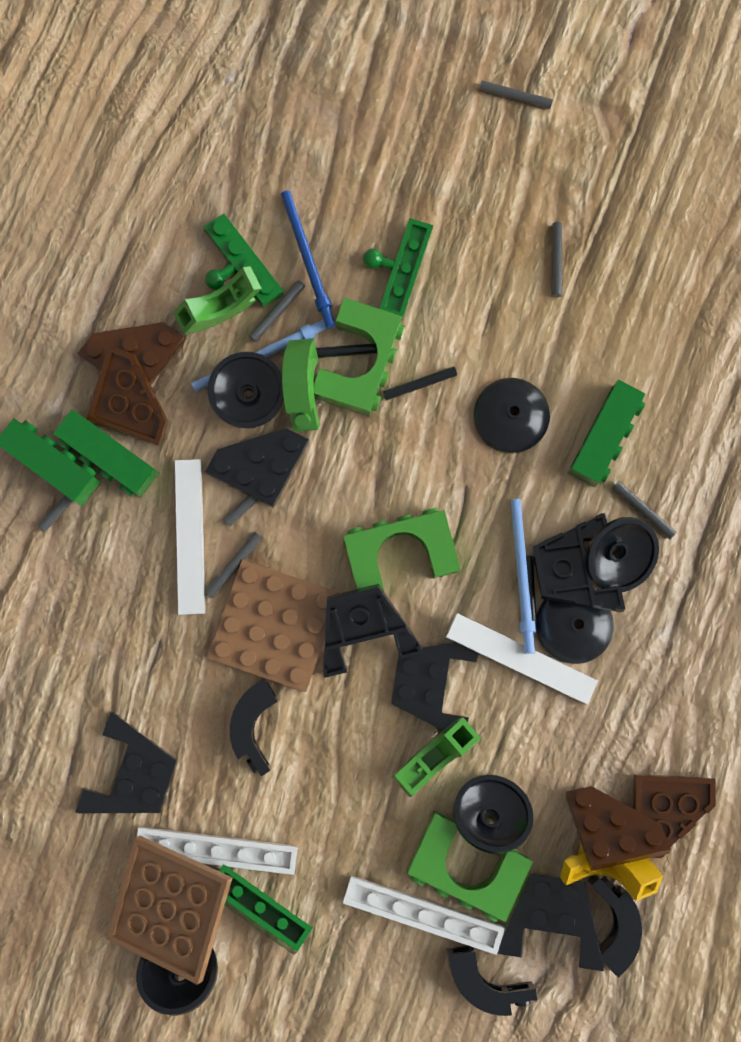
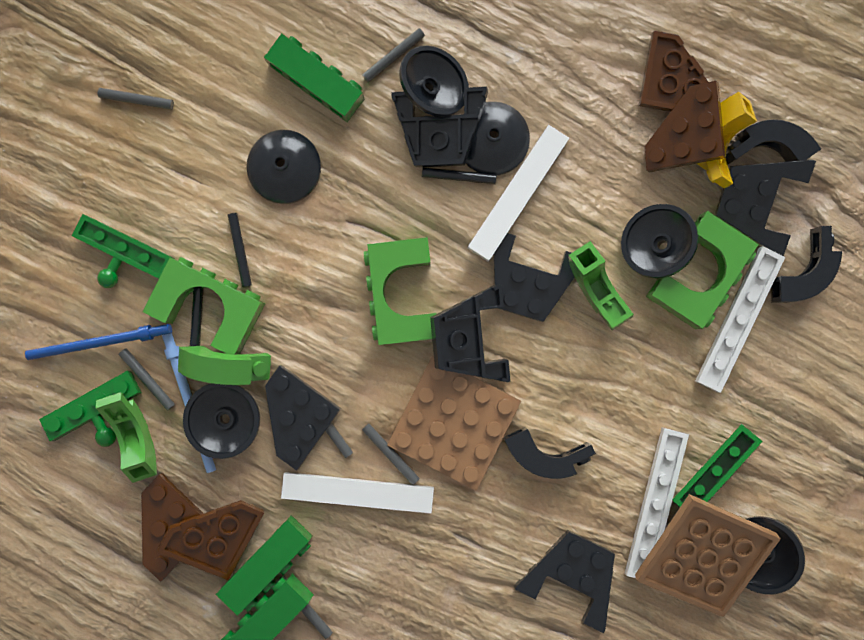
camera: 75 degrees left, 5 degrees up
(526, 626) = (489, 182): light blue bar -> none

